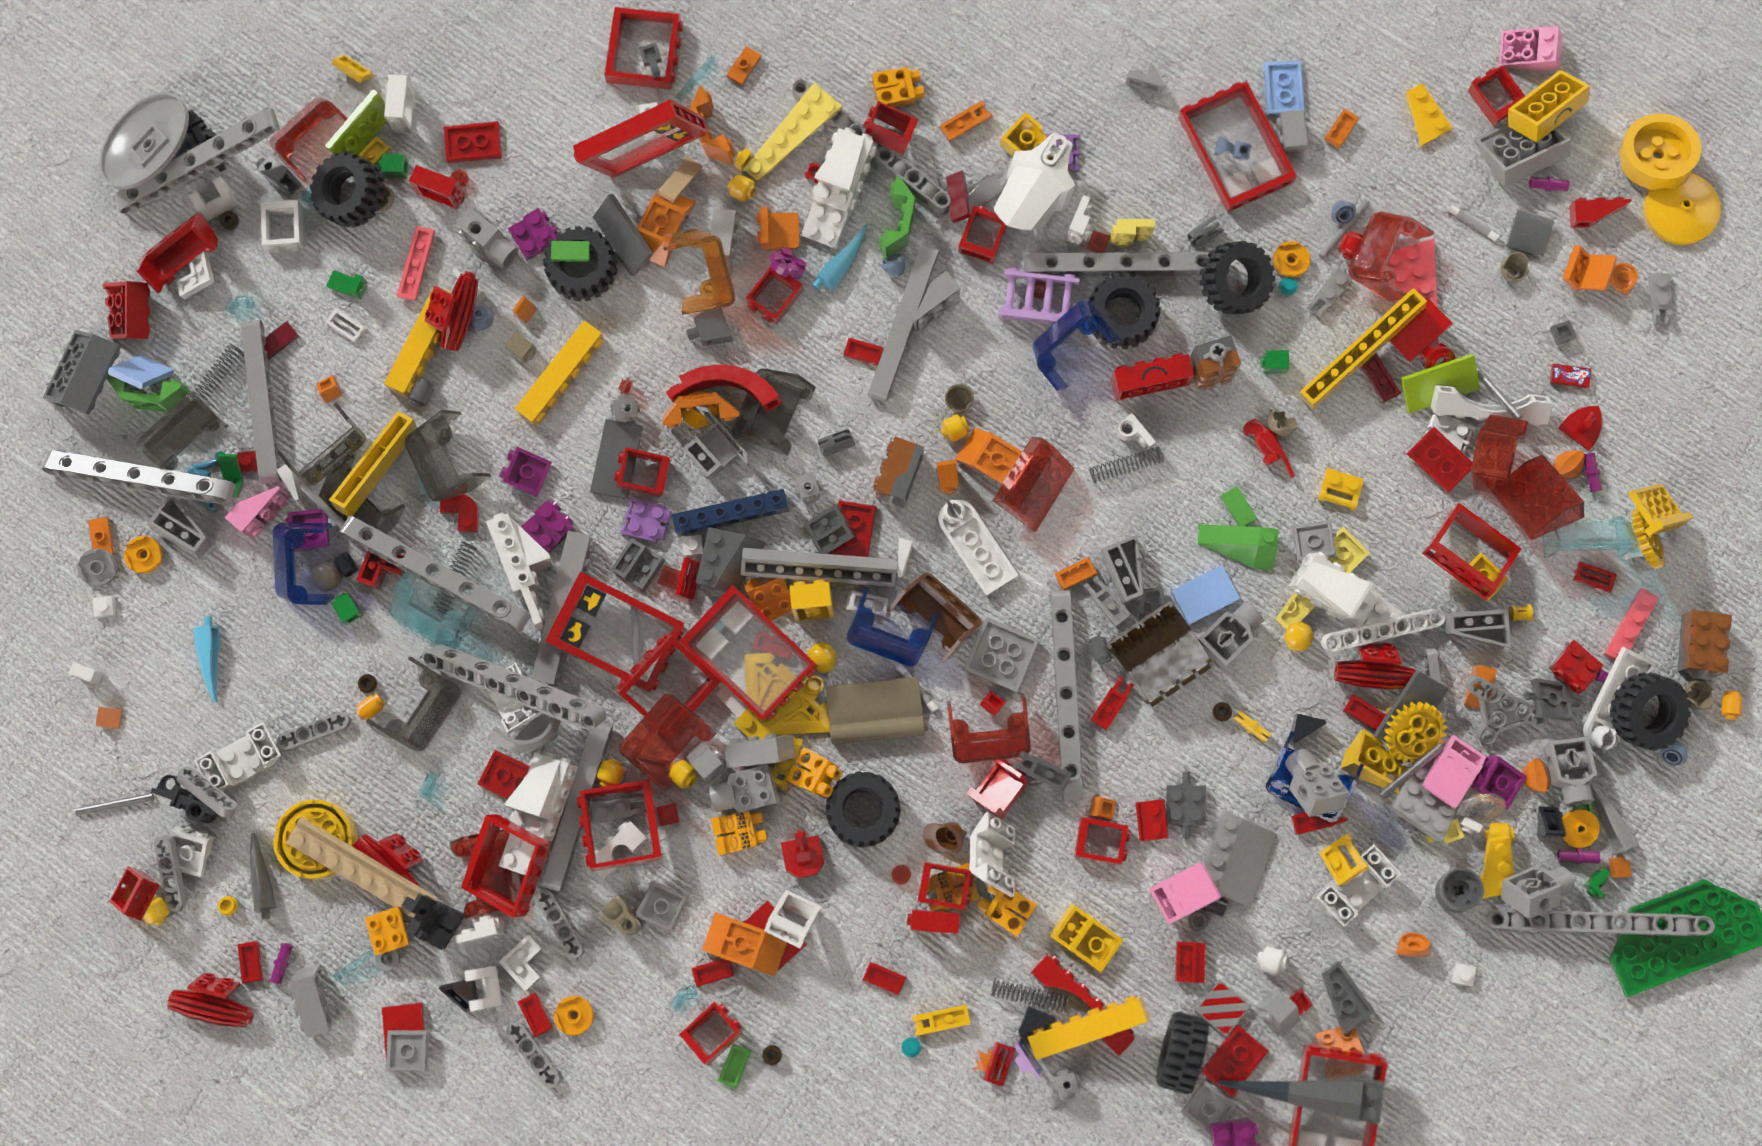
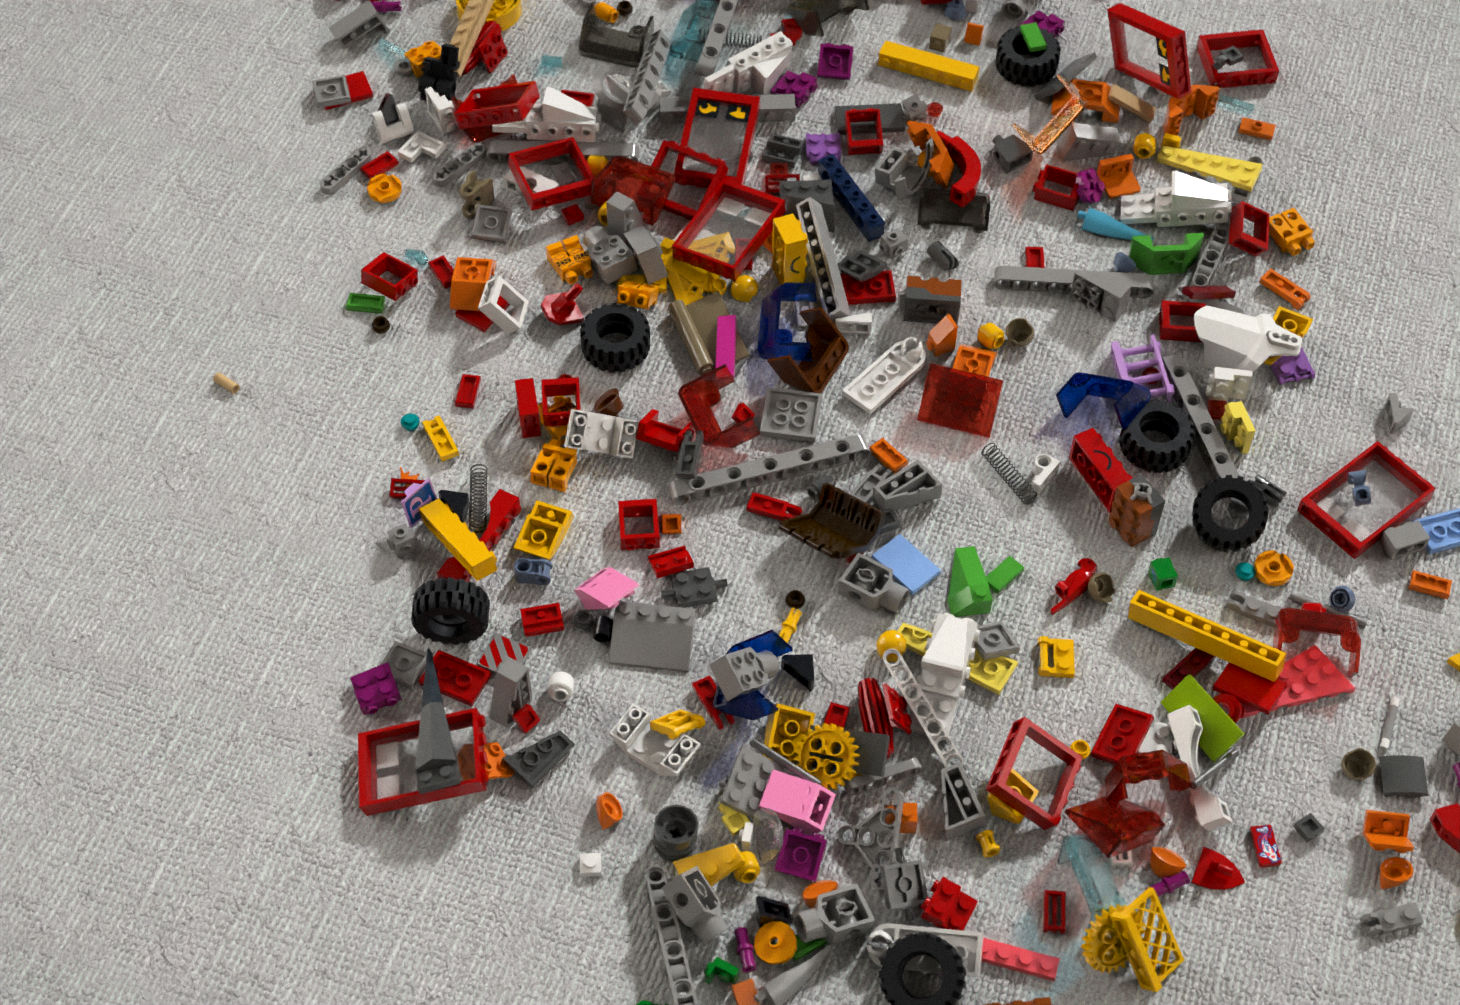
camera: 70 degrees right, 25 degrees down
(903, 698) = (726, 342): none -> dark pink tile
(1133, 956) = (533, 571): none -> sand blue piece
(1442, 501) = (1081, 747): none -> yellow plate

